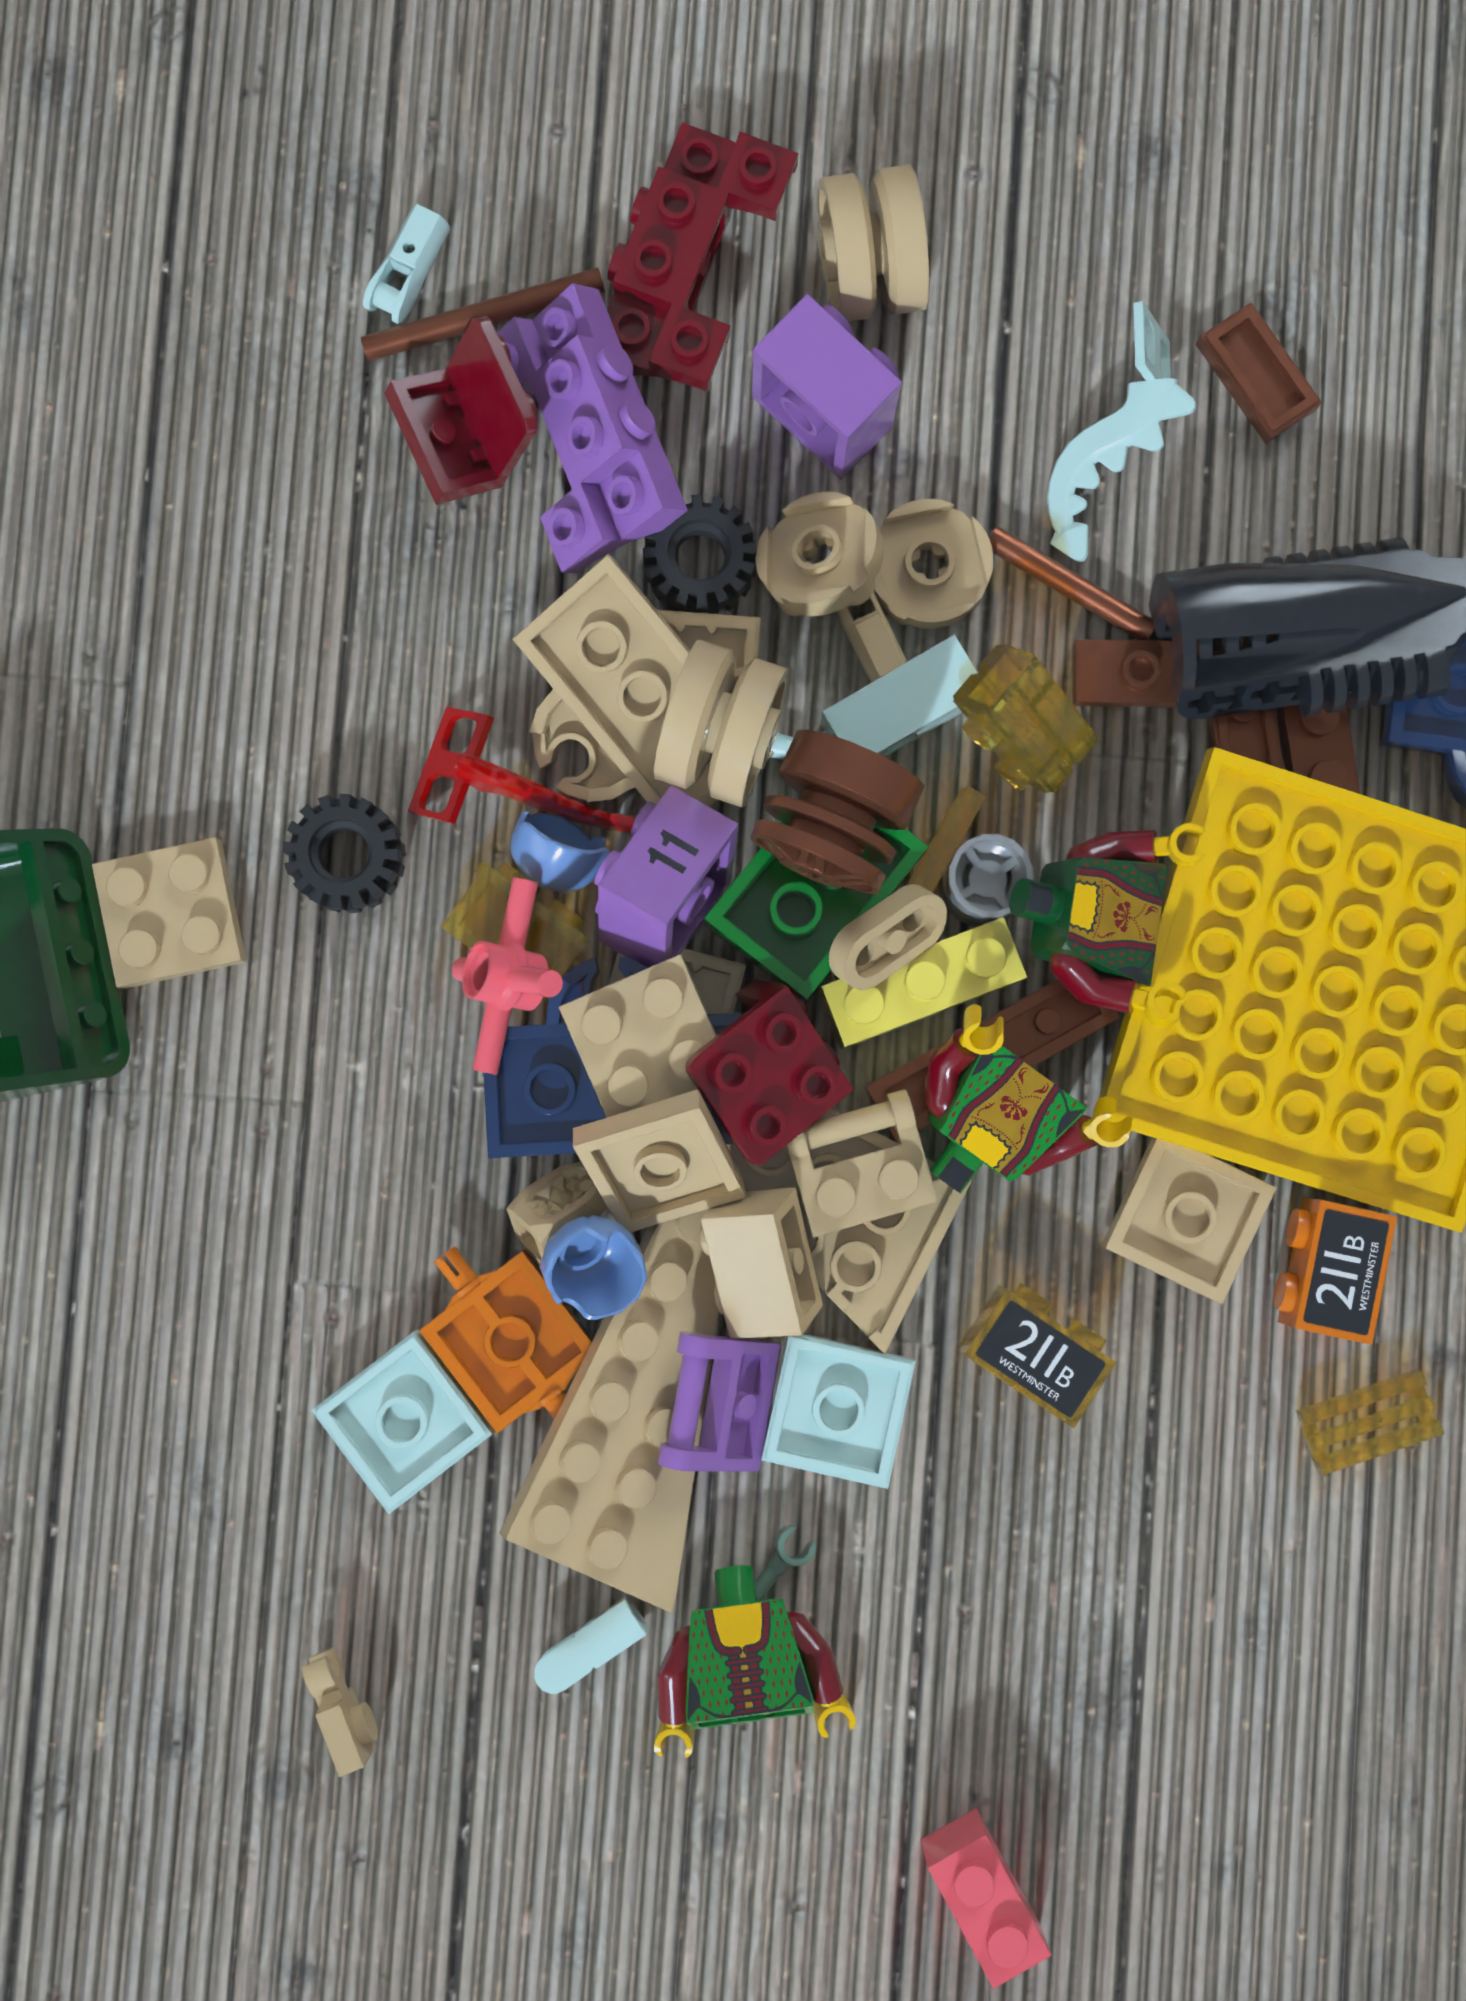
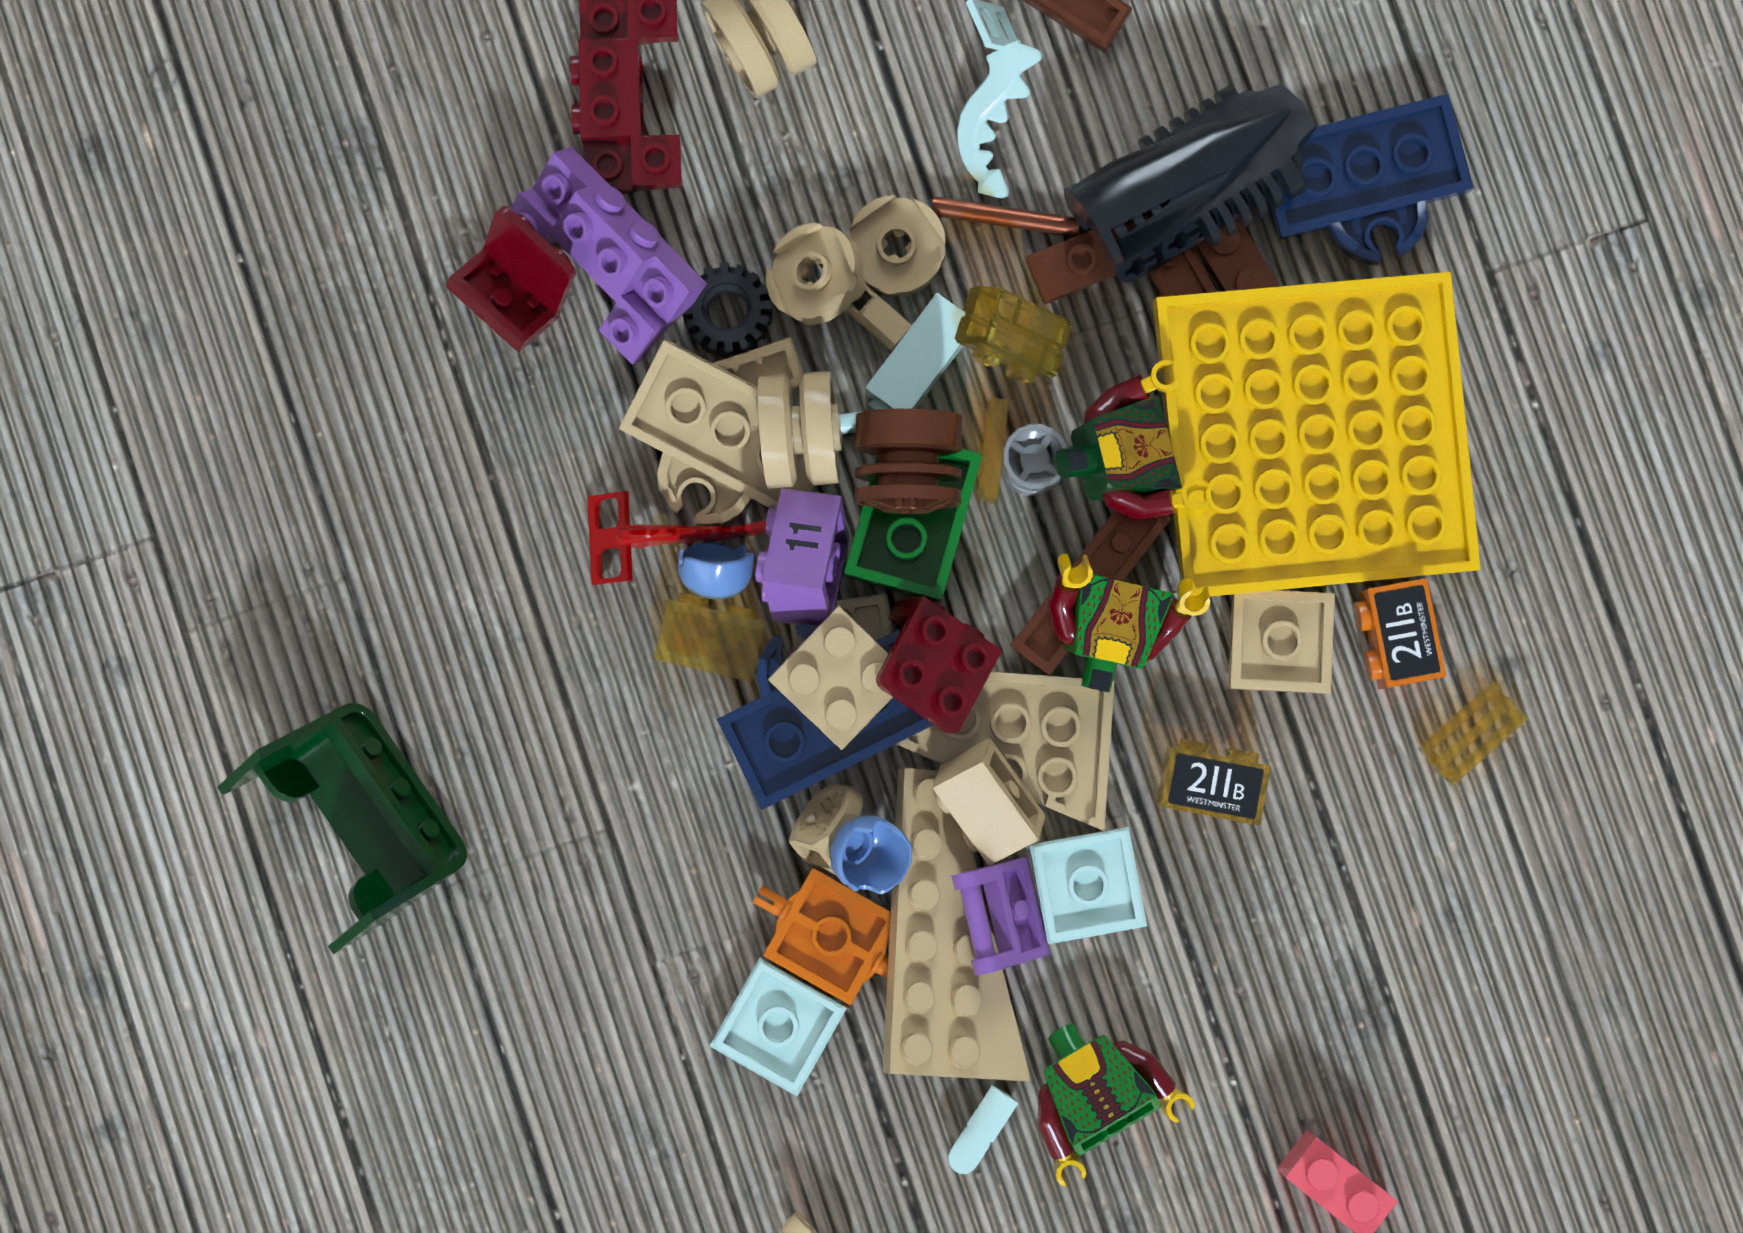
camera: 20 degrees left, 0 degrees up
(169, 913) = (449, 732): tan plate -> none
(317, 827) = (531, 626): black tyre -> none
(409, 258) = (420, 178): light aqua bar -> none
(457, 320) = (490, 197): copper bar -> none
(505, 976) = (719, 674): coral bar -> none
(659, 1161) = (886, 759): tan plate -> none
(781, 1561) = (1093, 1011): sand green hand -> none
(825, 385) = (768, 150): medium lavender brick -> none
(867, 1184) = (1040, 714): tan plate -> none
(887, 937) = (980, 531): tan plate -> none
(931, 983) = (1019, 553): light yellow brick -> none

